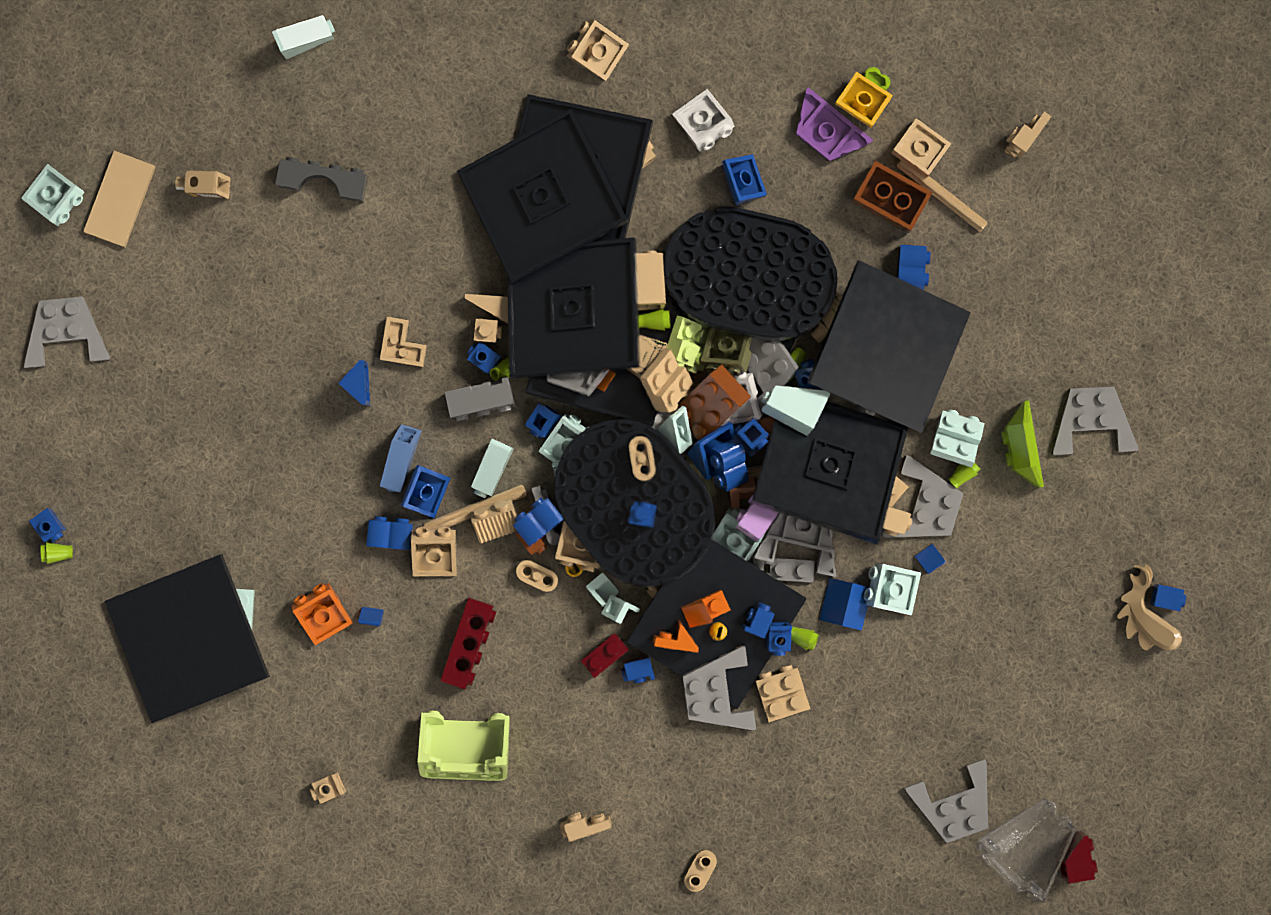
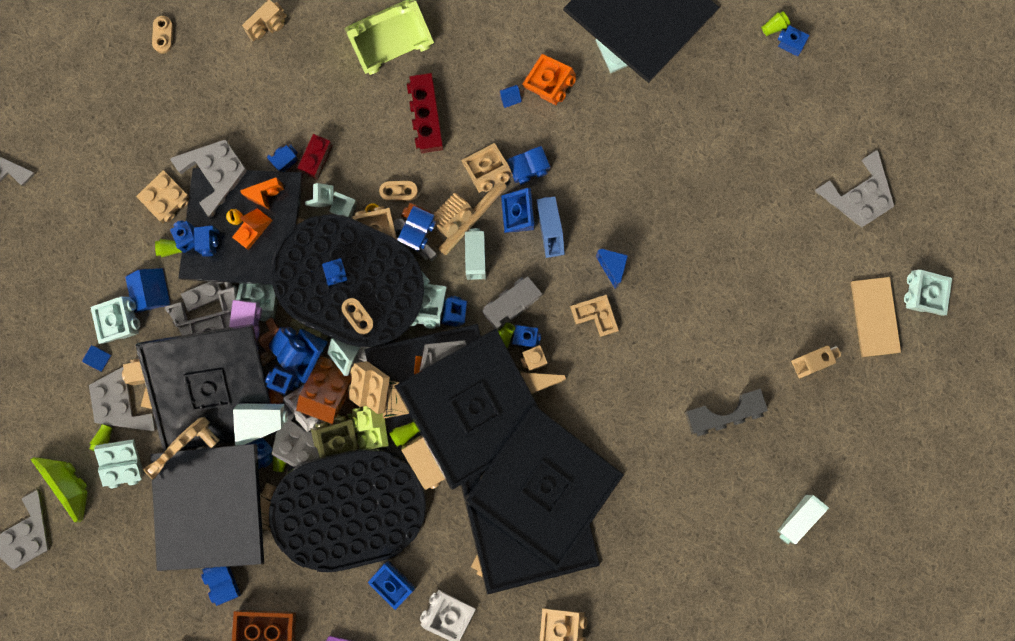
camera: 155 degrees right, 5 degrees down
(861, 429) = (198, 428): none -> tan animal

